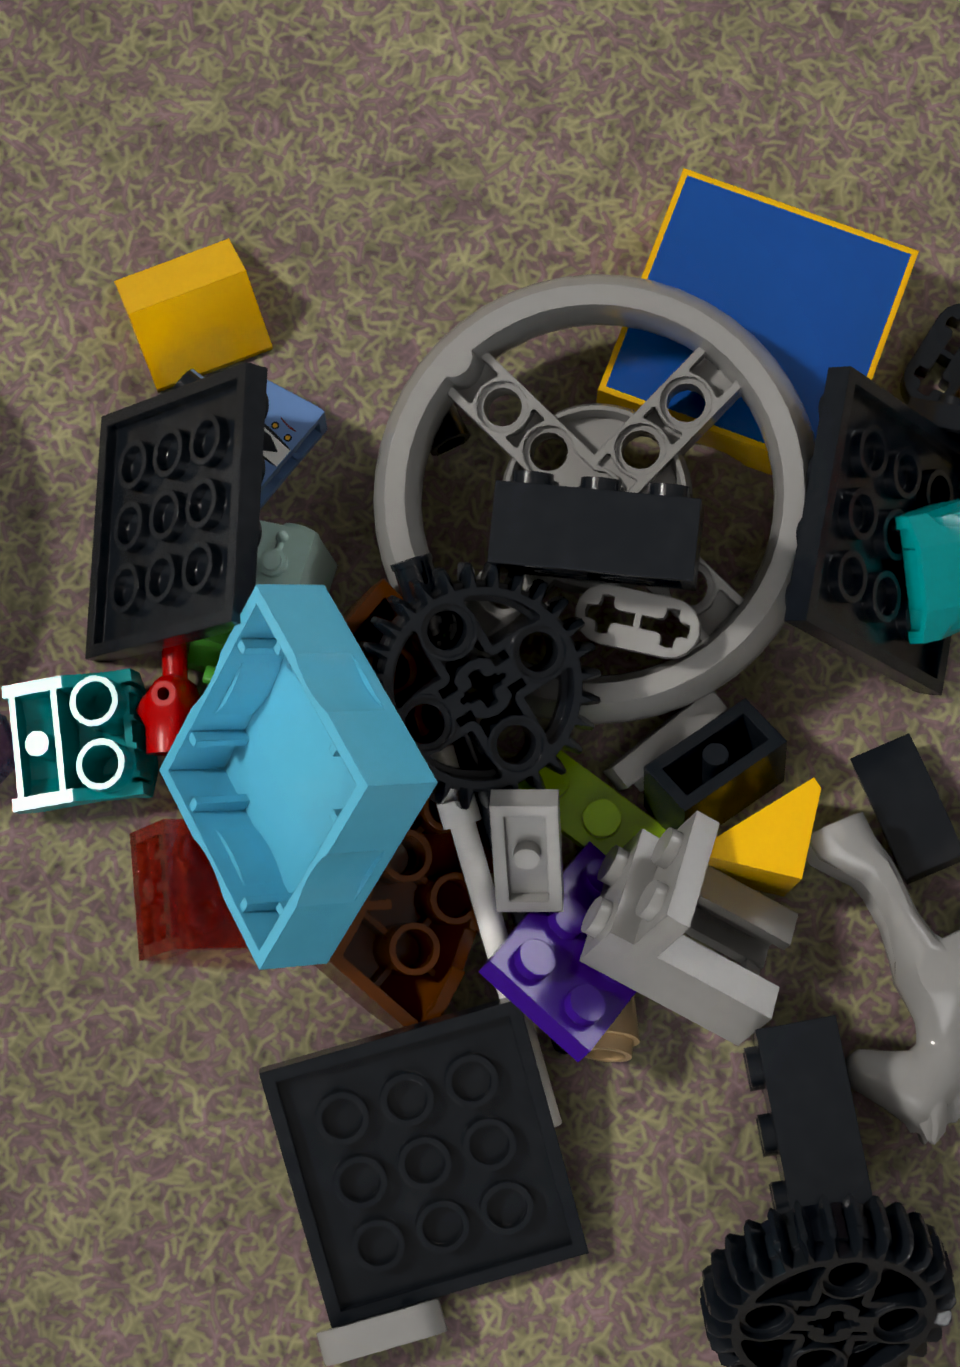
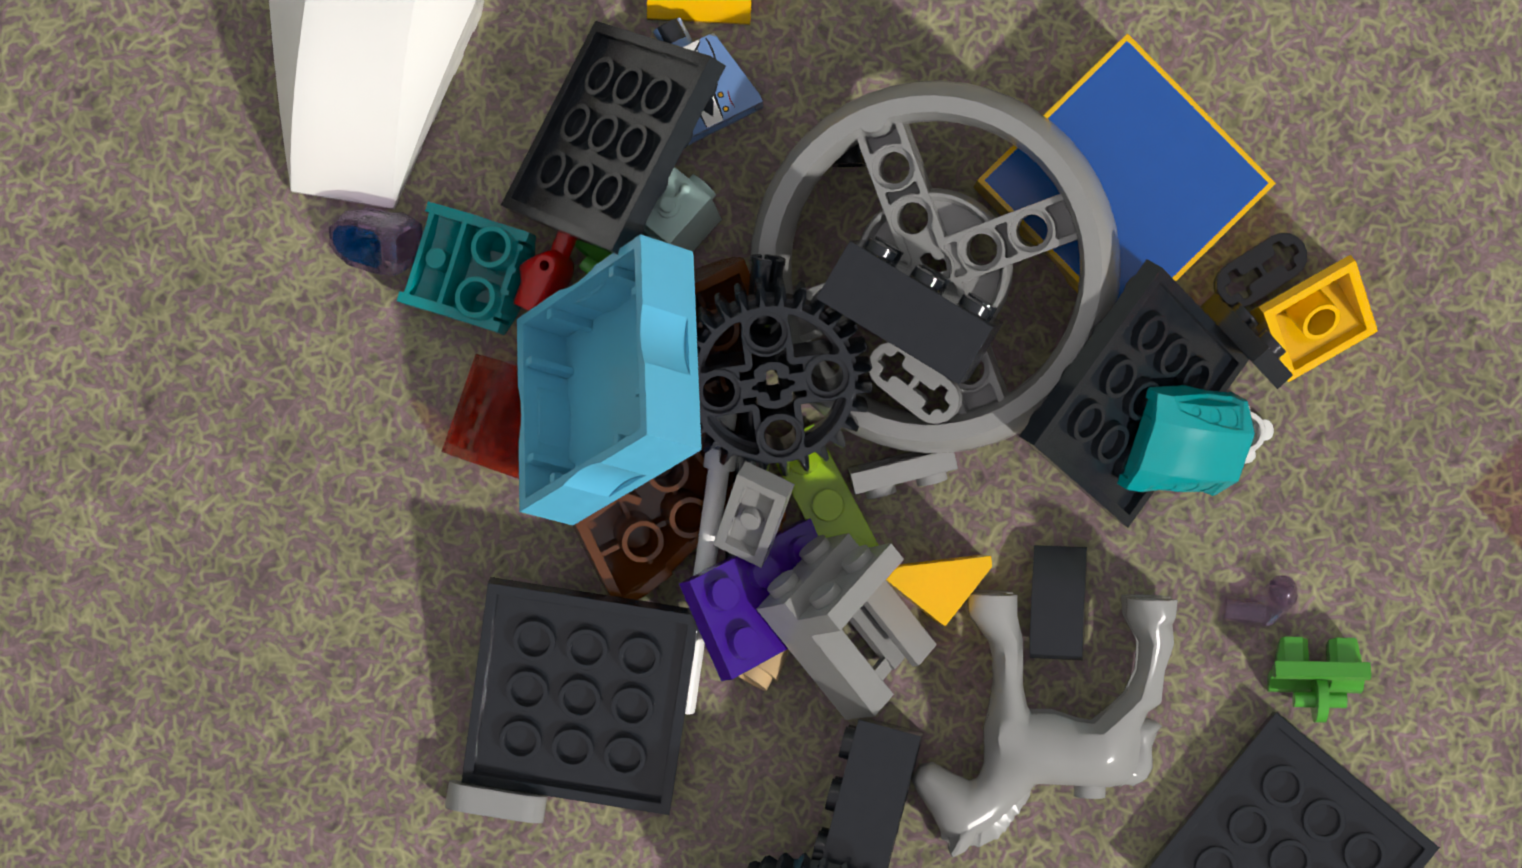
camera: 25 degrees right, 10 degrees up
(716, 769) = (926, 511): black brick -> none

